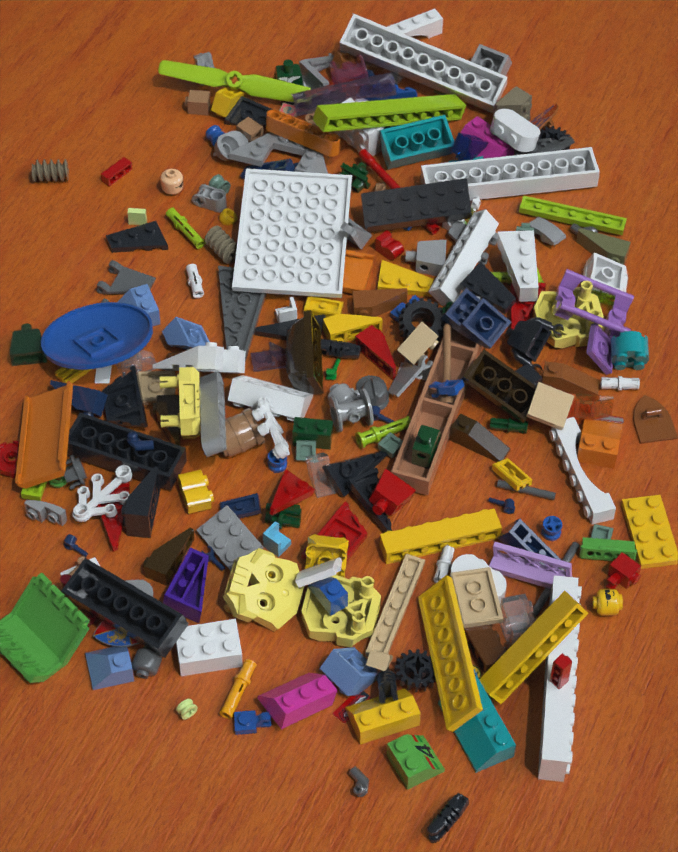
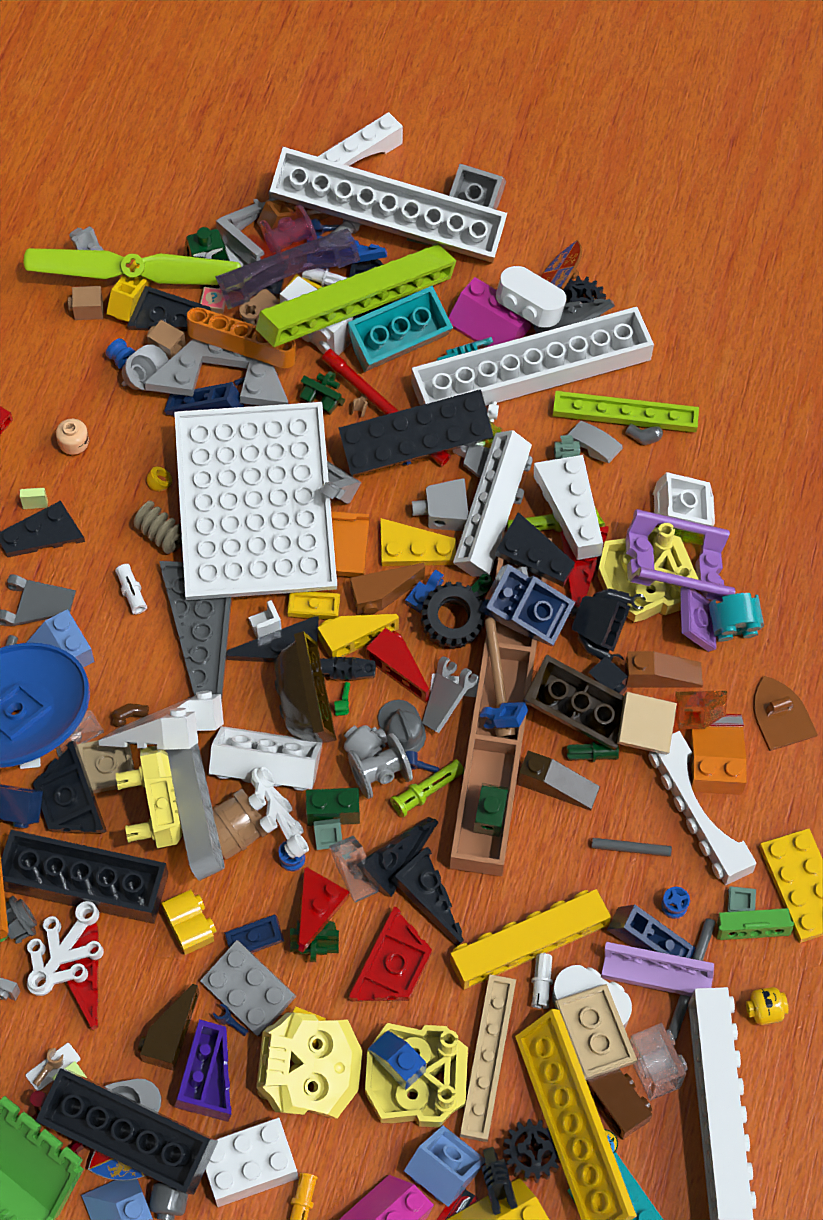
camera: 10 degrees left, 10 degrees up
(69, 544) = (31, 1029): dark blue hand -> none
(138, 444) = (99, 869): dark blue arm -> none
(142, 506) = (121, 961): black slope -> none
(168, 406) = (131, 810): dark brown slope -> none
(173, 215) = (103, 506): lime pin -> none
(184, 334) = (137, 680): medium blue slope -> none
(211, 198) = (126, 455): light grey piece -> none
(219, 183) = (139, 432): sand green wheel -> none
(270, 359) = (253, 697): slope -> none
(274, 540) = (311, 980): medium azure panel -> none
(318, 572) = (380, 1031): white slope -> none
(325, 548) = (384, 999): yellow slope -> none
(379, 660) = (482, 1147): tan slope -> none
(388, 246) = (386, 496): red leg -> none
(390, 444) = (441, 807): sand green plate -> none
(390, 494) = (452, 888): red torso -> none
(418, 343) = (454, 651): tan brick -> none
(467, 146) = (470, 328): clear blue slope -> none
(508, 504) = (612, 874): dark blue hand -> none
(509, 476) = (606, 830): yellow tile -> none
(516, 100) = (525, 251): dark tan slope -> none
(533, 647) = (685, 1103): yellow brick -> none
(560, 671) = (731, 1143): red piece -> none
(604, 245) = (676, 456): olive slope -> none
(619, 383) = (729, 664): white pin -> none
(623, 572) = (780, 955): red brick -> none

